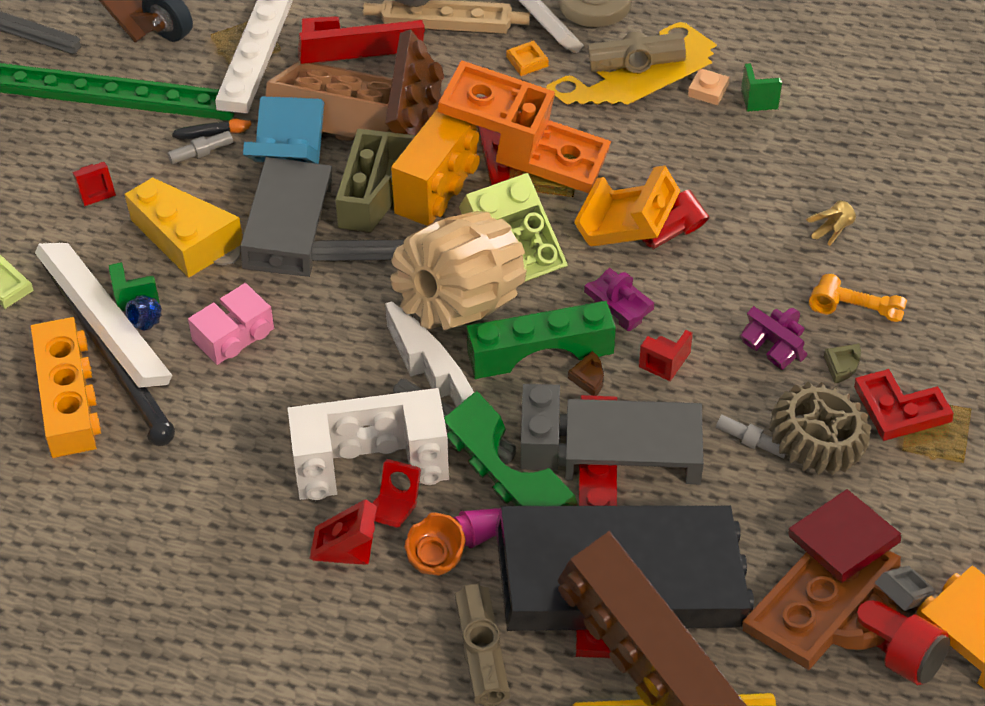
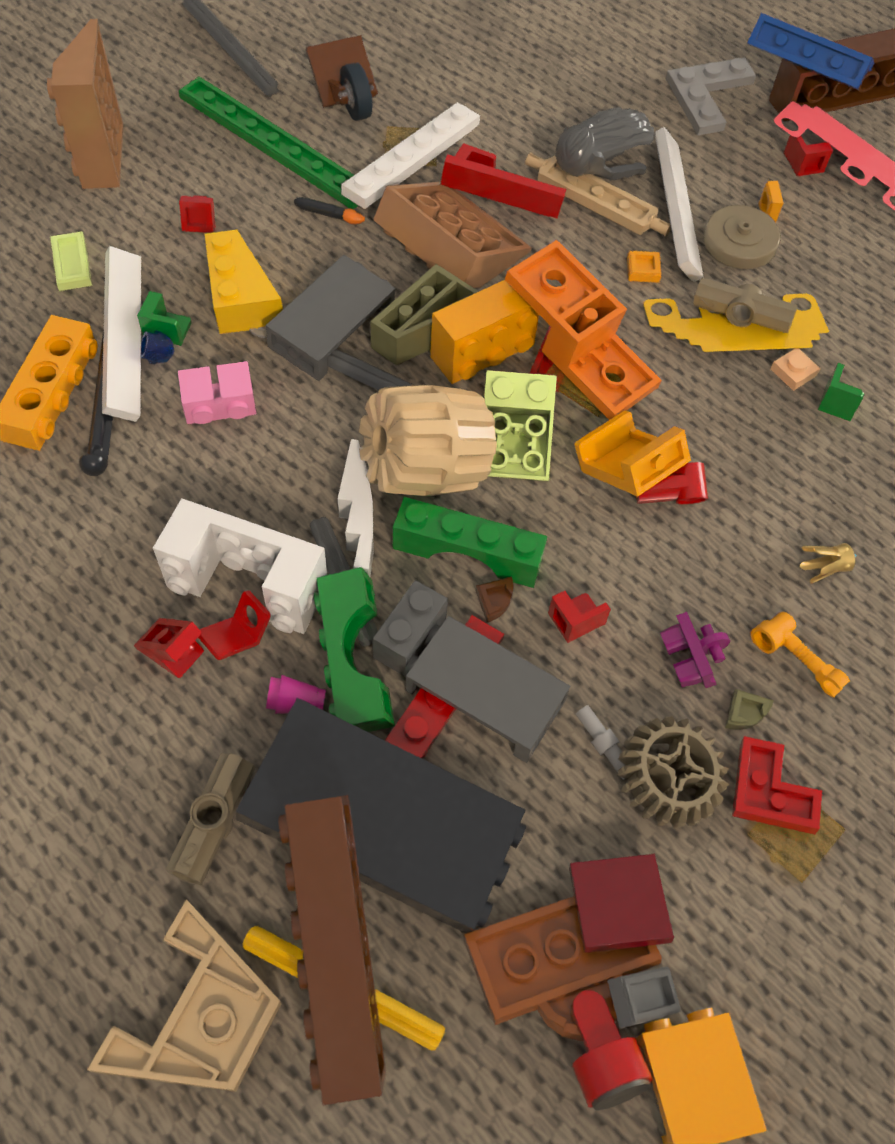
camera: 25 degrees right, 10 degrees up
(200, 147) = (307, 221): light grey bar -> none
(287, 130) = (380, 240): dark azure bracket -> none
(413, 87) = (515, 239): reddish brown plate -> none
(435, 544) = (237, 695): orange hair -> none
(622, 297) = (568, 538): magenta hips -> none

